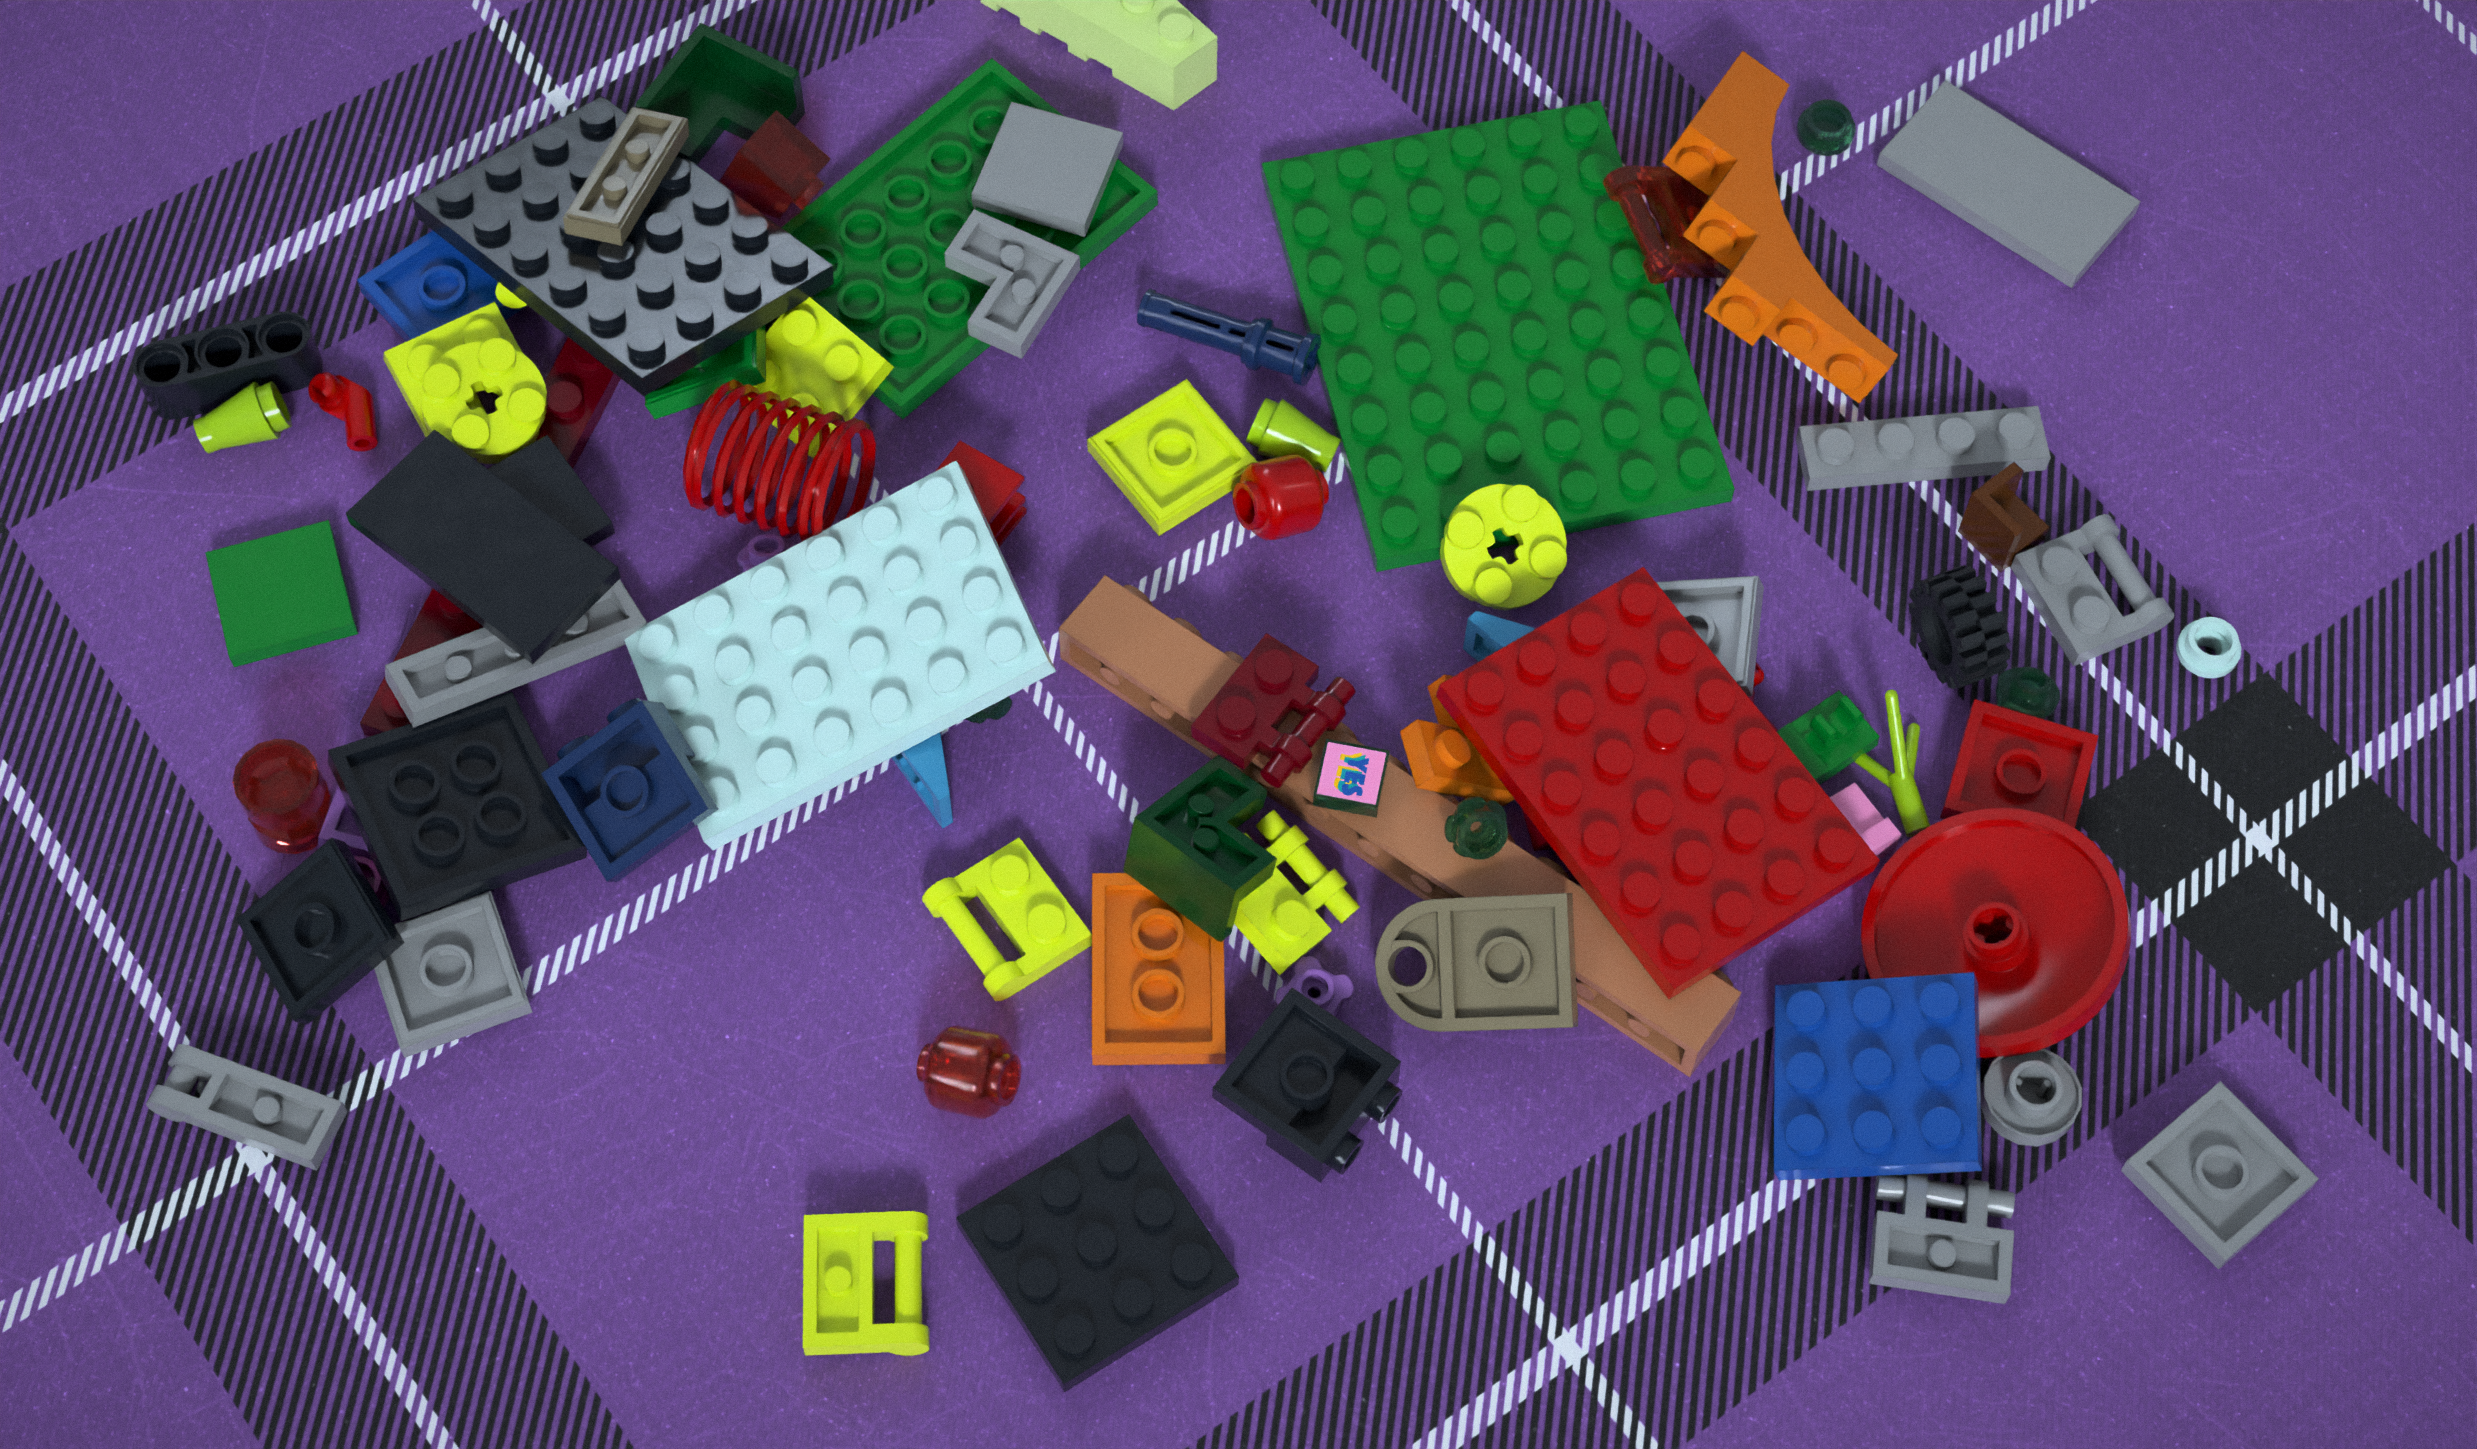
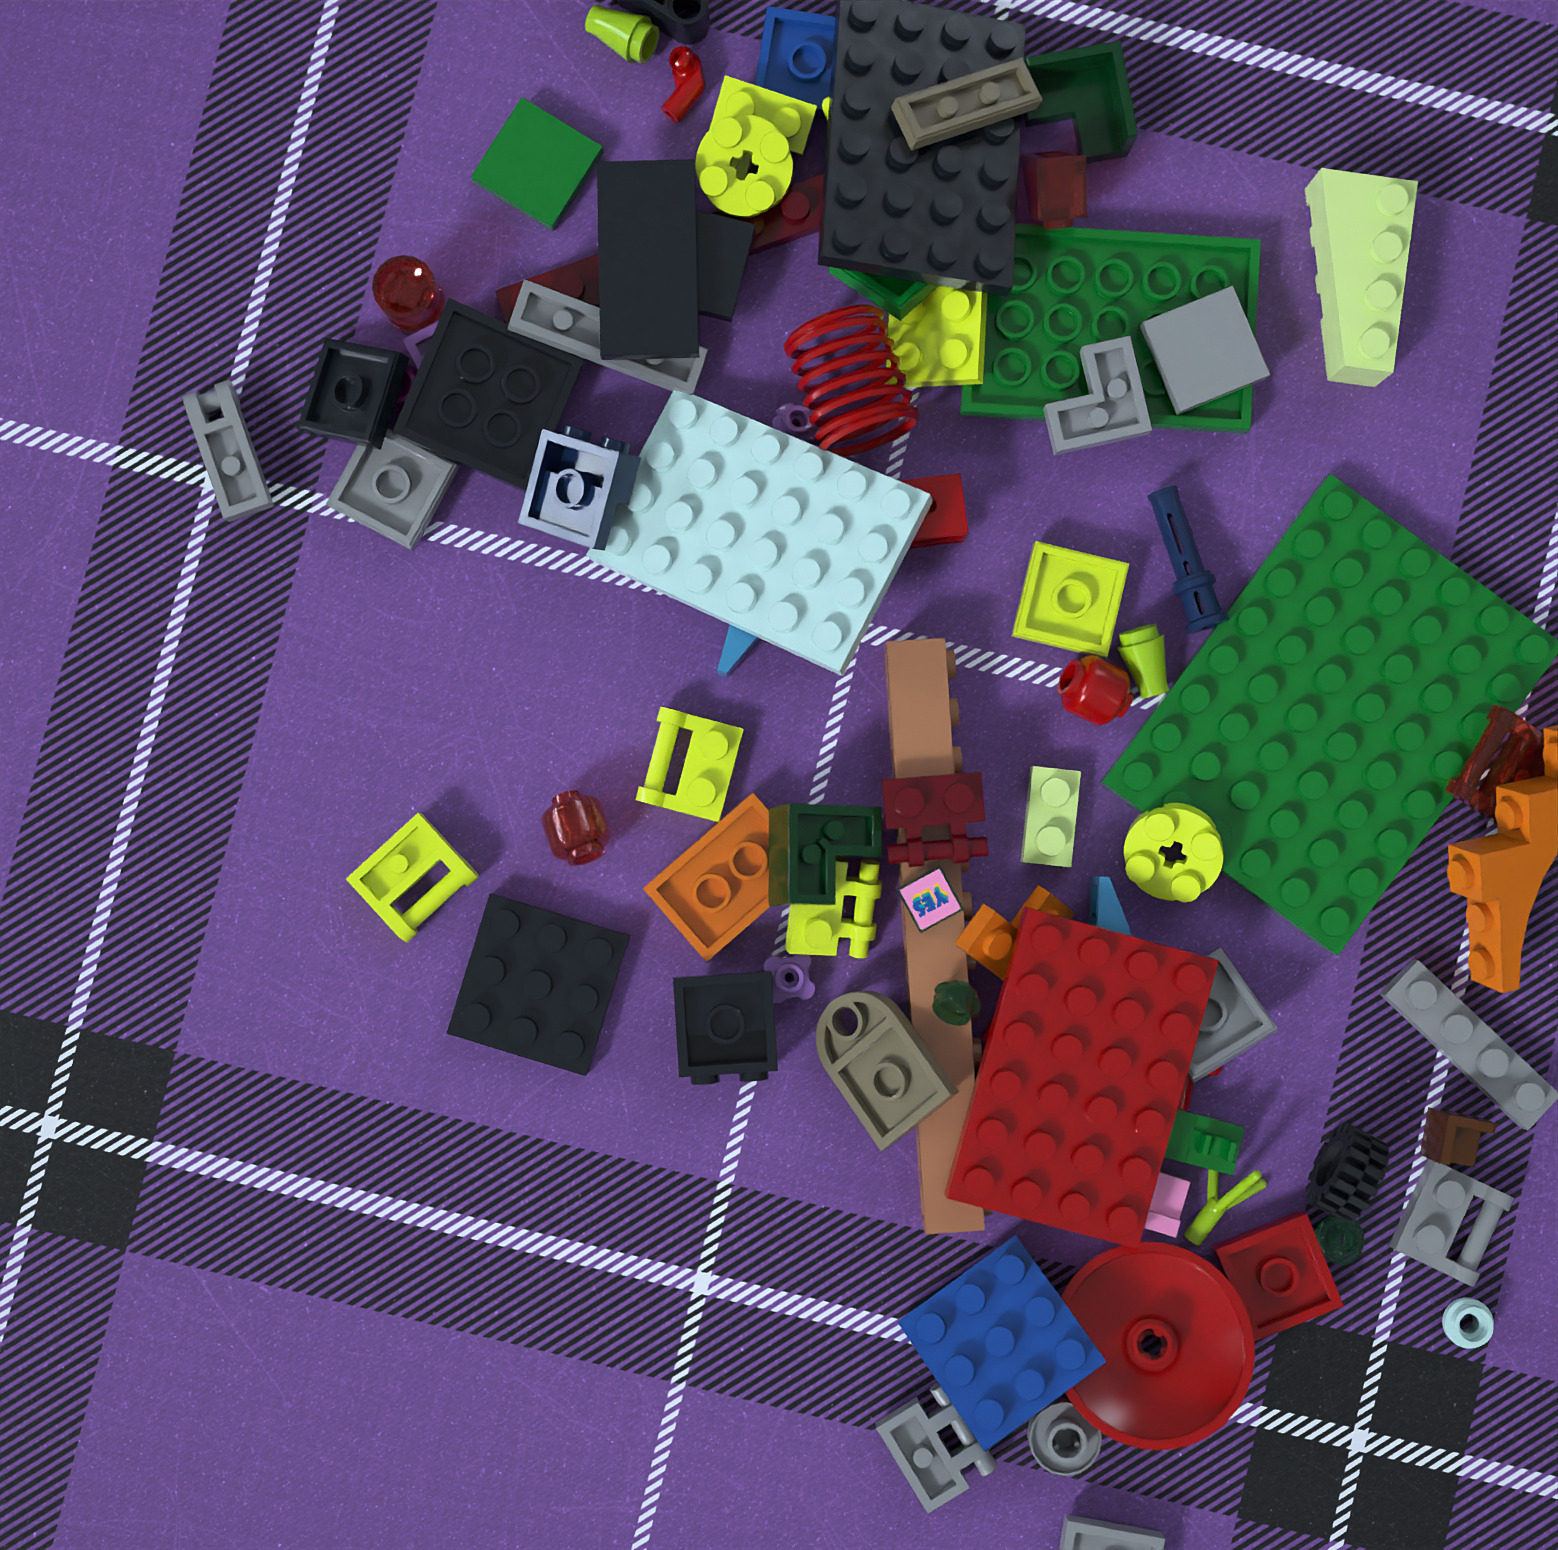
camera: 50 degrees right, 25 degrees up
(1370, 635) = (1050, 816): none -> yellowish green plate

